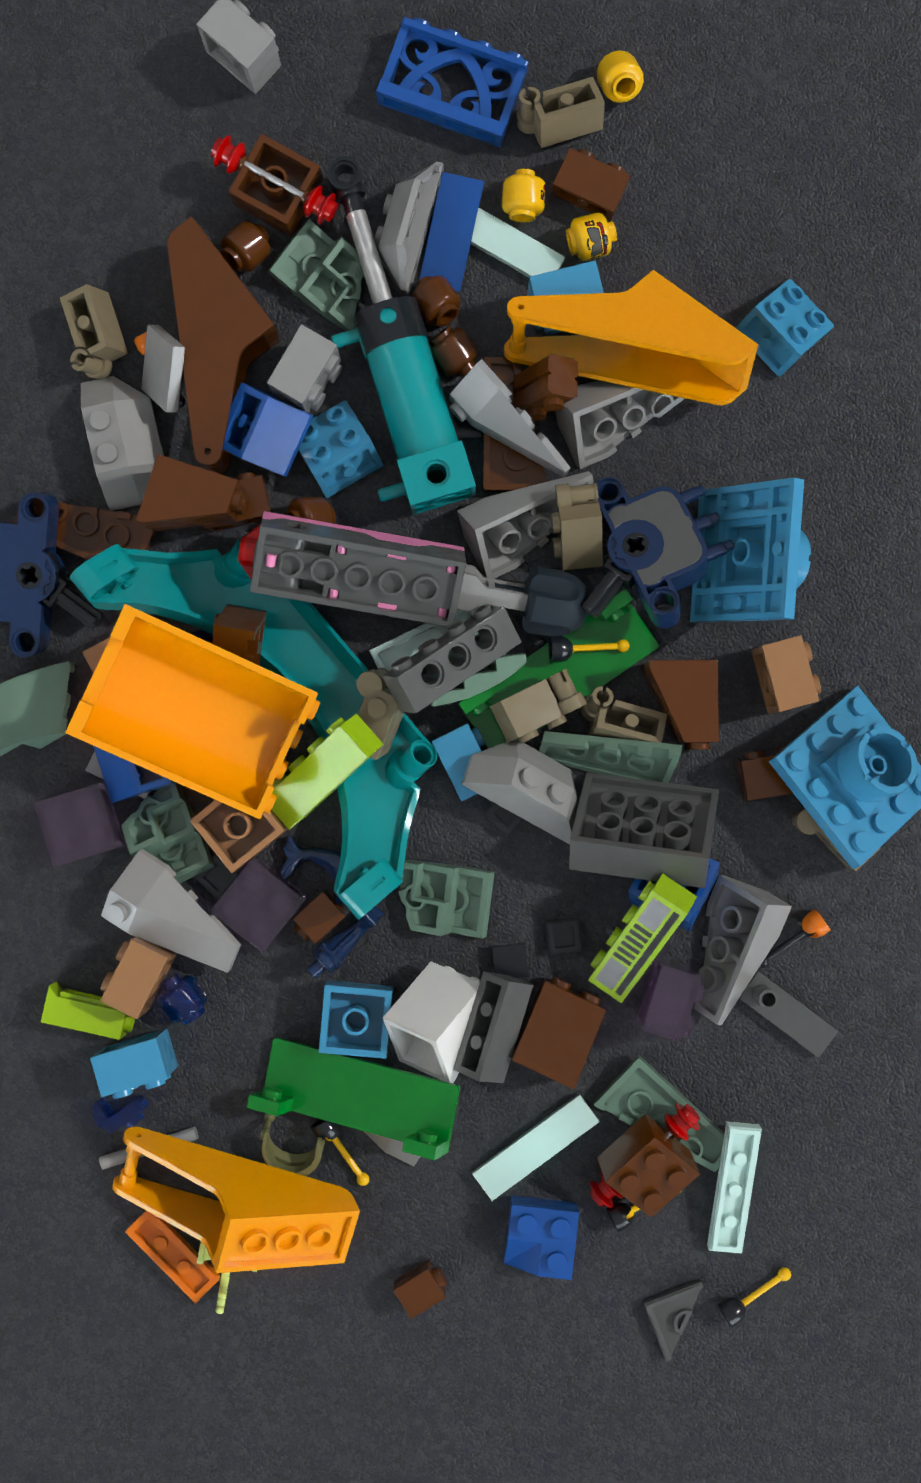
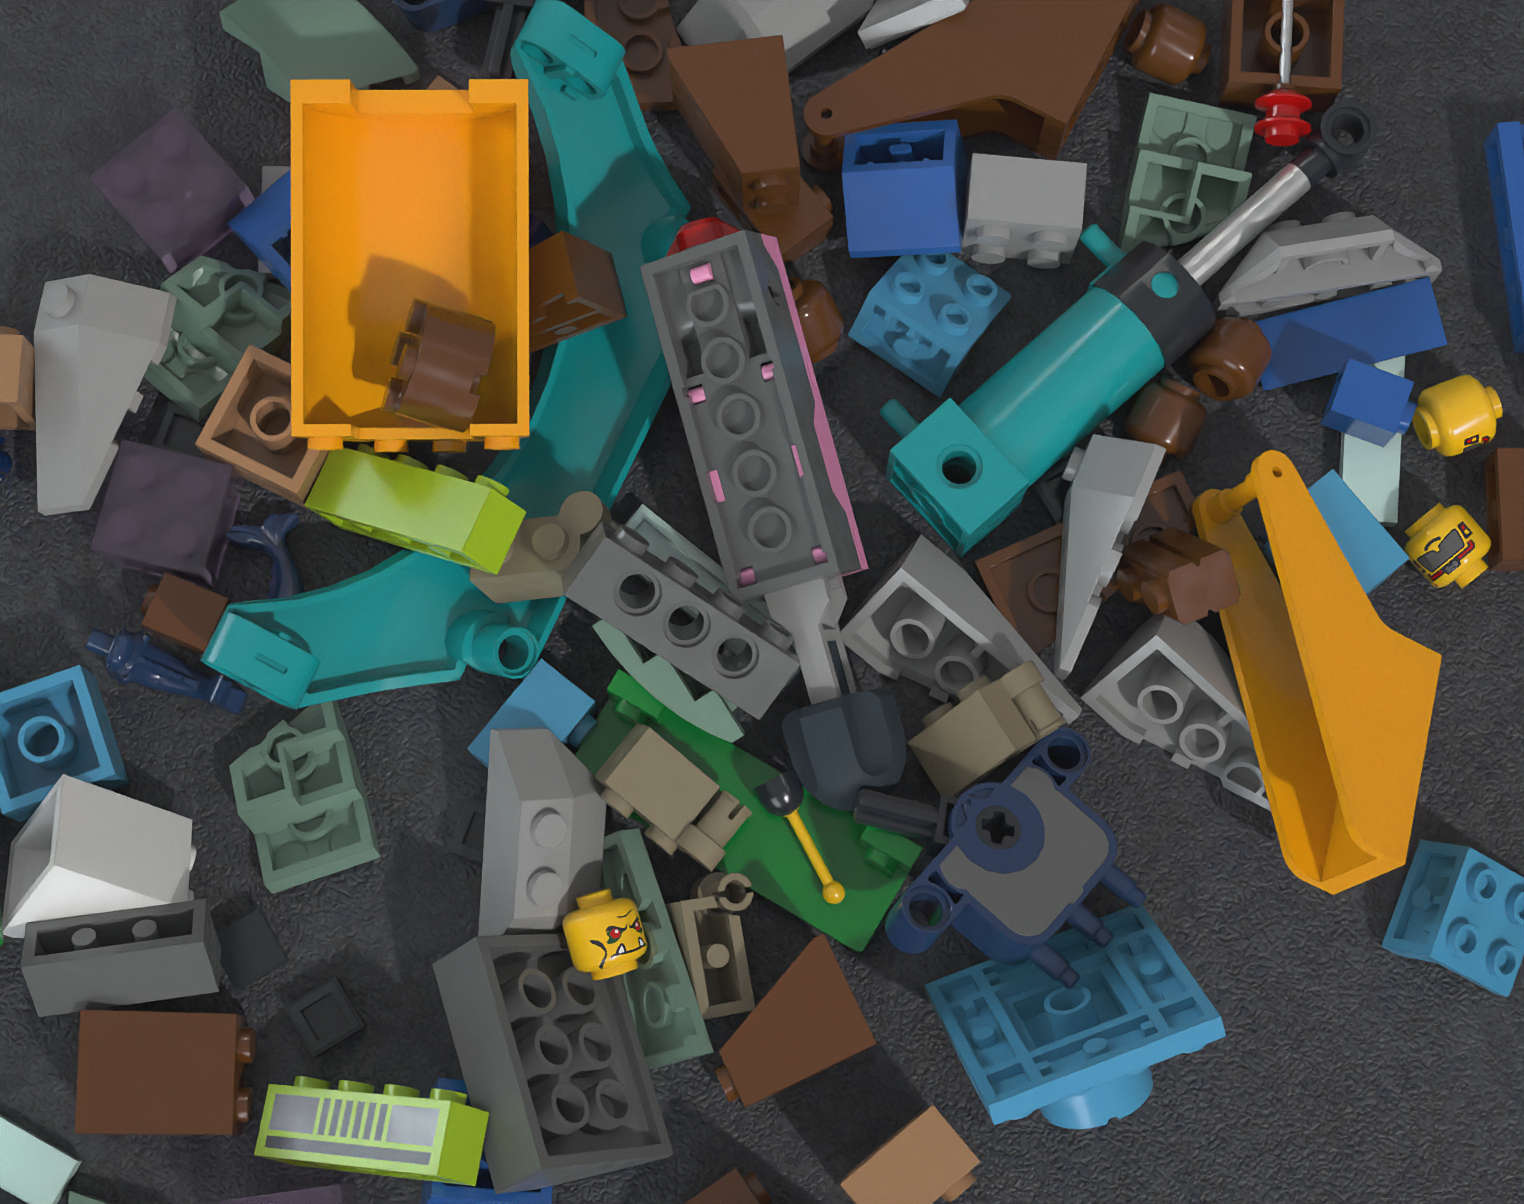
camera: 65 degrees right, 10 degrees down
(256, 723) = (439, 365): none -> reddish brown brick
(497, 239) = (1369, 403): none -> blue brick
(593, 773) = (604, 935): none -> yellow head

